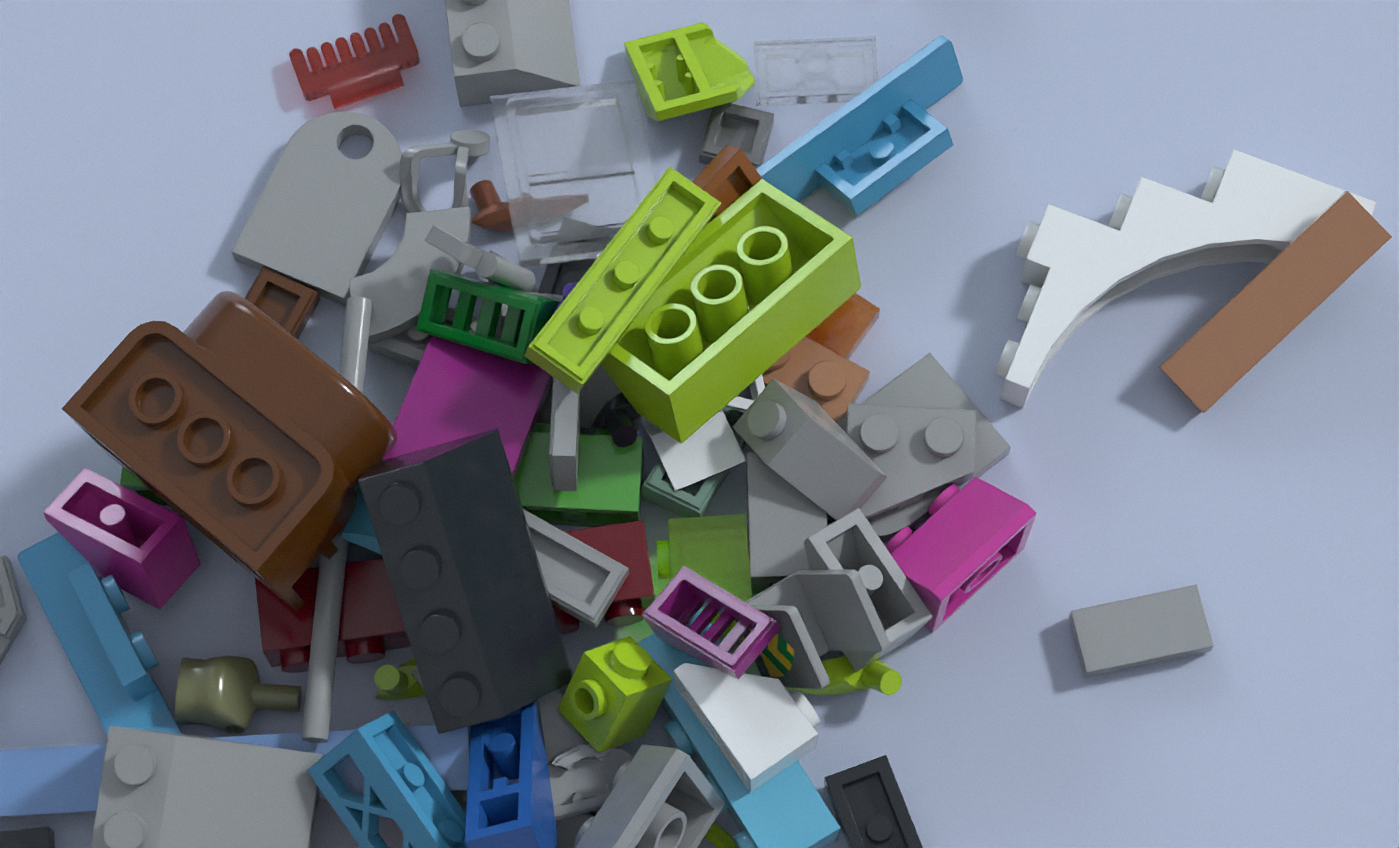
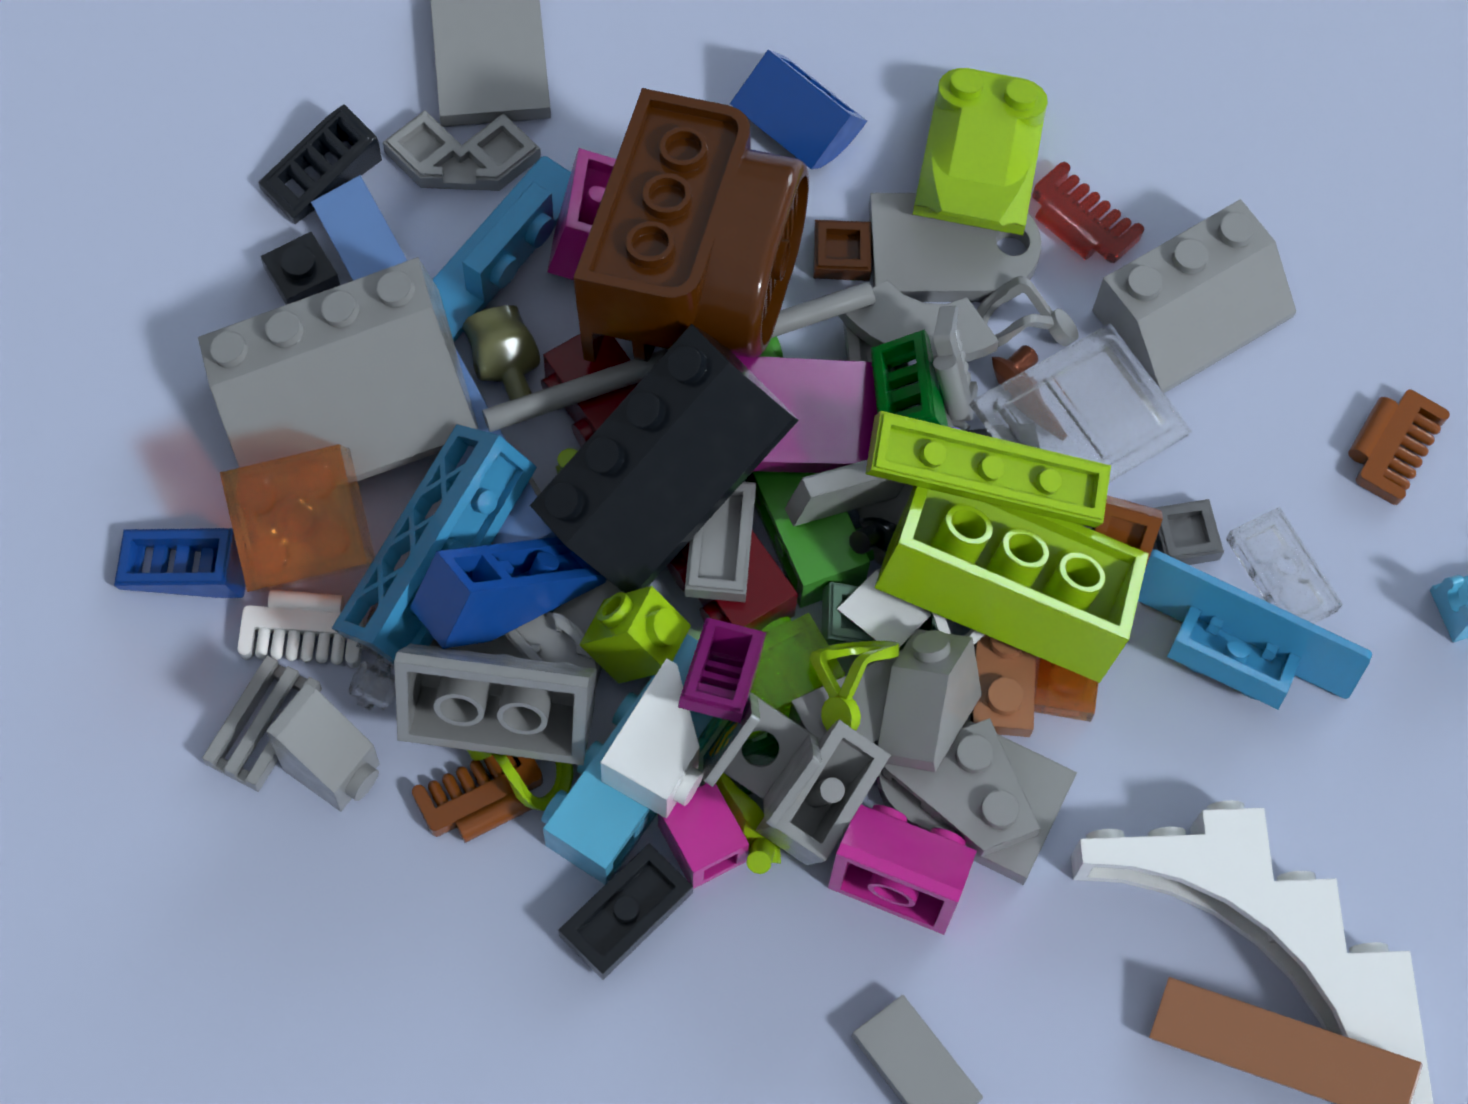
camera: 60 degrees right, 5 degrees down
(99, 278) = (797, 111): none -> blue brick
(243, 124) = (982, 150): none -> lime slope
(686, 71) = (1221, 465): lime slope -> none
(786, 532) = (840, 702): none -> lime piece
(847, 723) = (704, 836): none -> dark pink brick

